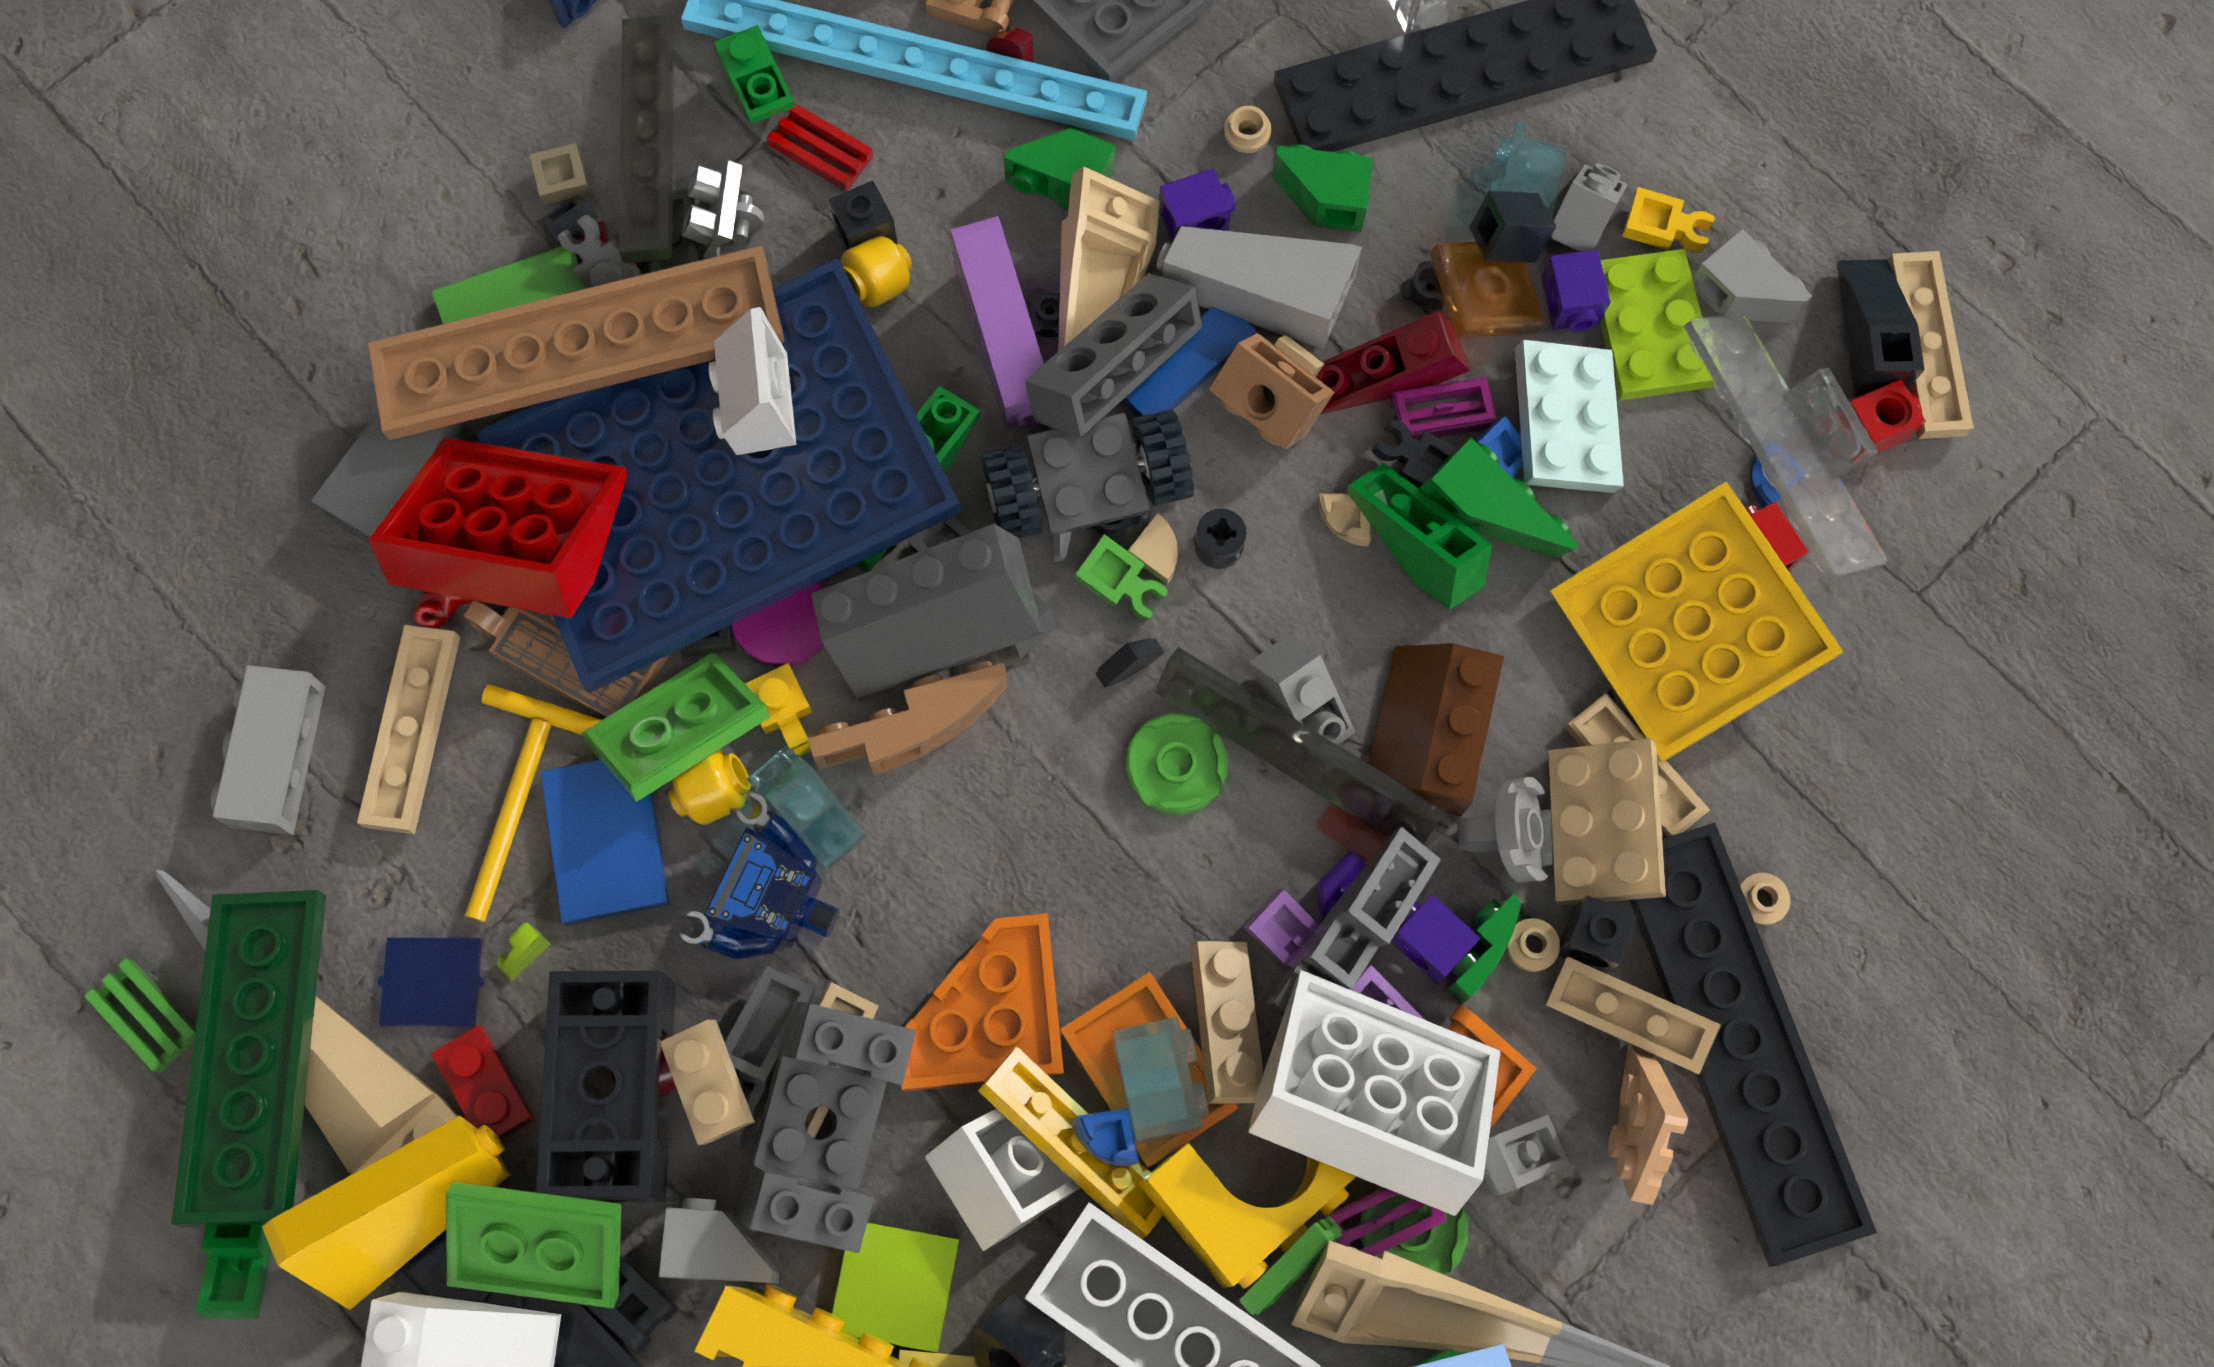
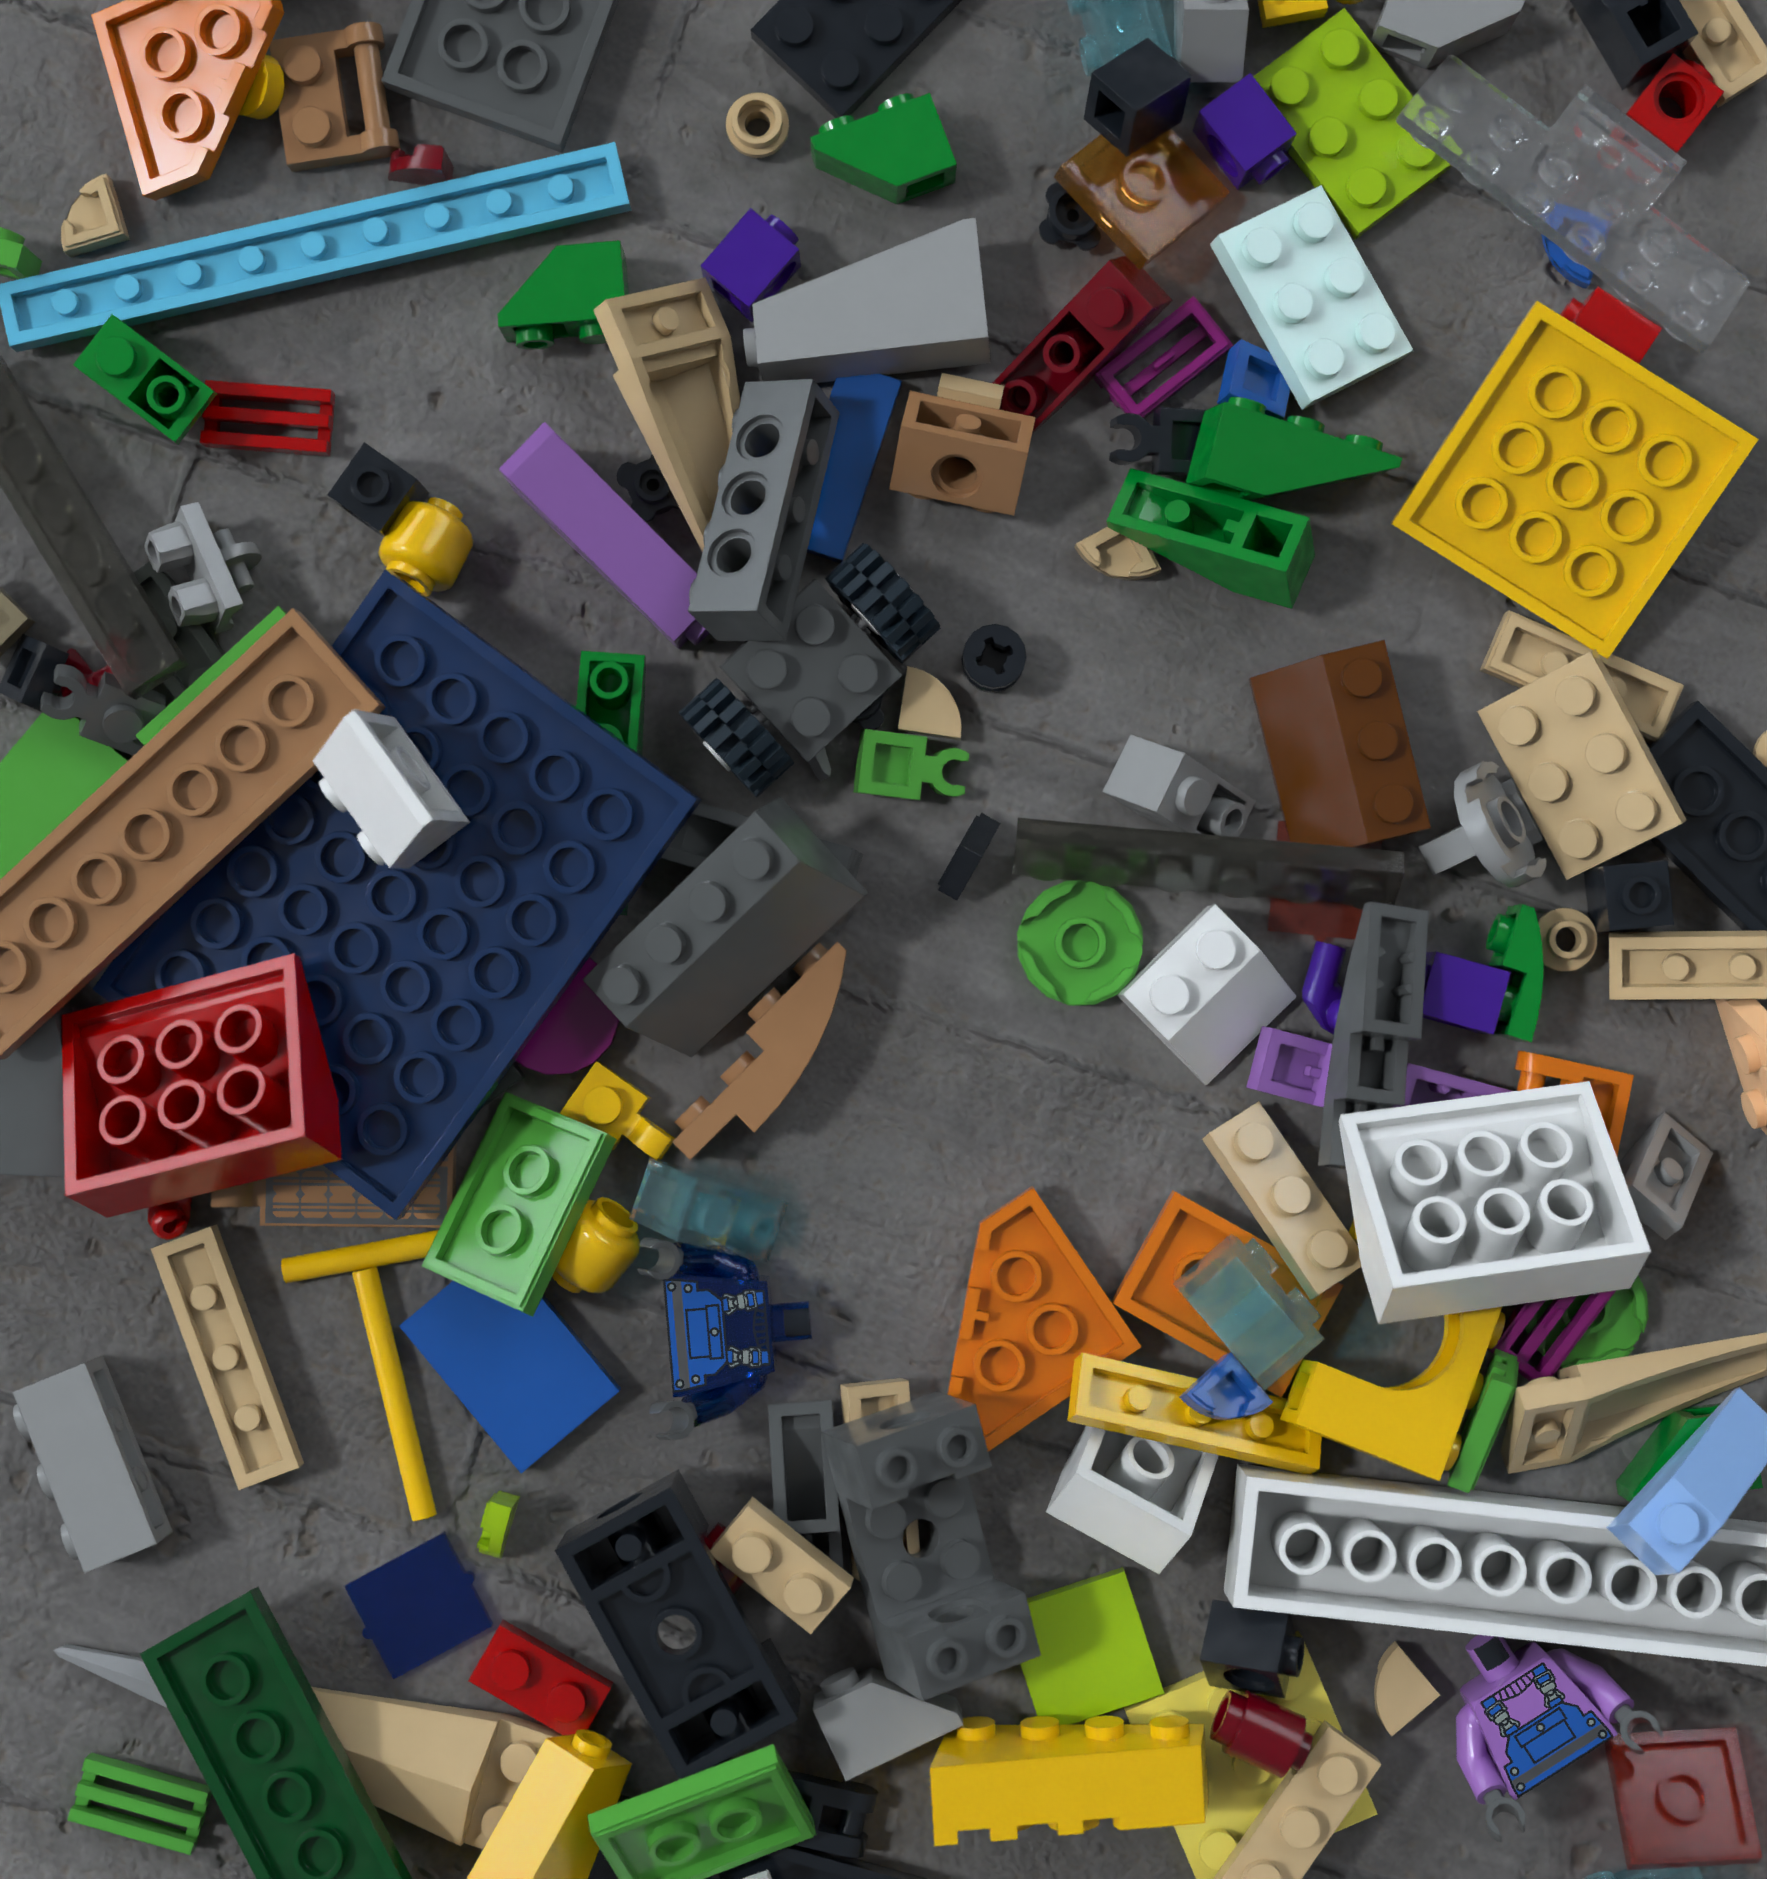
camera: 25 degrees left, 15 degrees up
(1249, 843) = (1208, 993): none -> white slope

